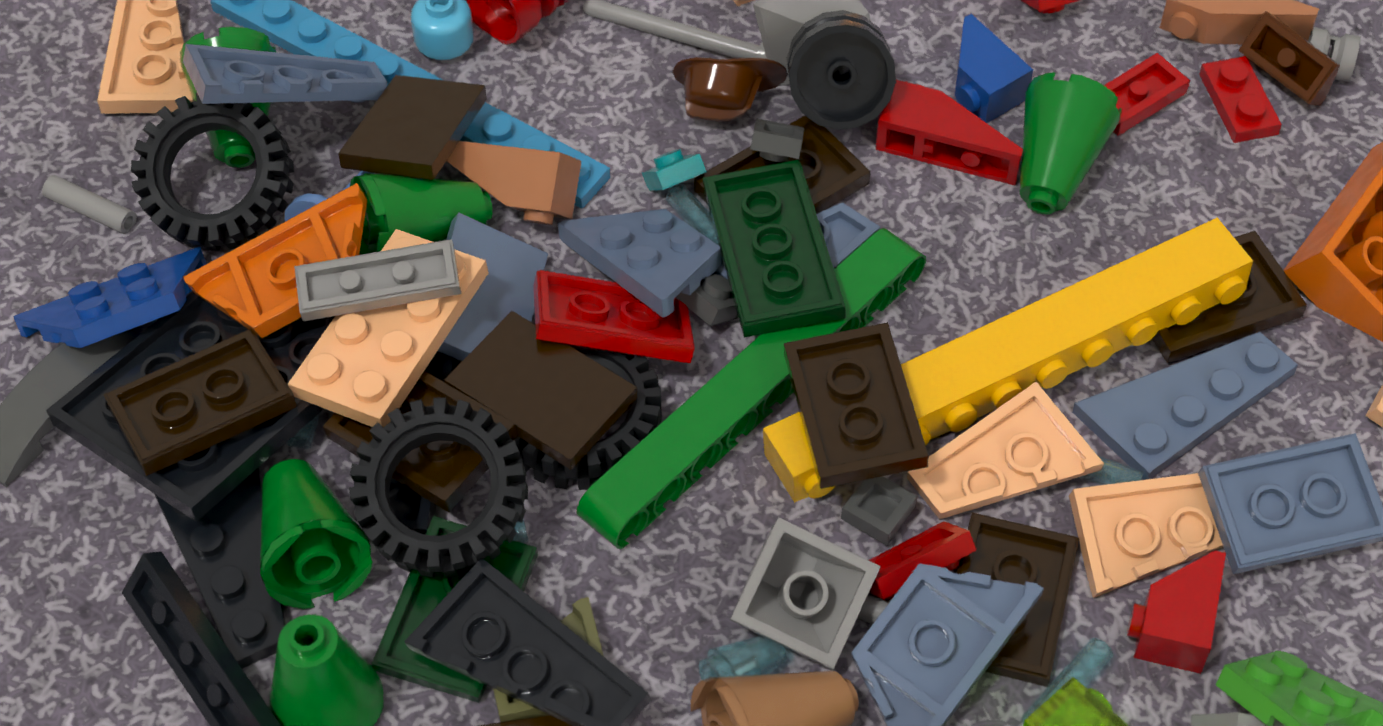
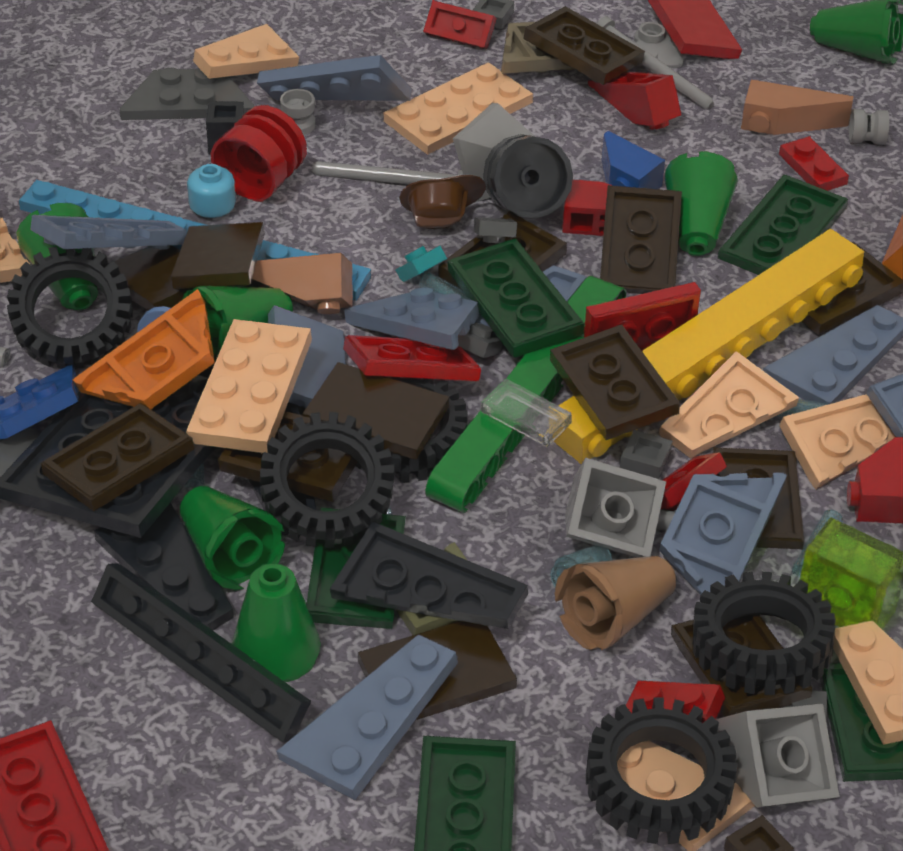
camera: 15 degrees left, 10 degrees down
(316, 136) = (149, 277): none -> dark brown tile
(377, 280) = (236, 349): light grey tile -> none
(730, 427) = (526, 412): none -> clear tile
(926, 313) = (646, 315): none -> red tile
(965, 185) = (641, 238): none -> dark brown tile
(1146, 90) = (750, 165): red plate -> none
(1169, 187) = (781, 224): none -> dark green tile
(1290, 59) = (843, 131): reddish brown slope -> none

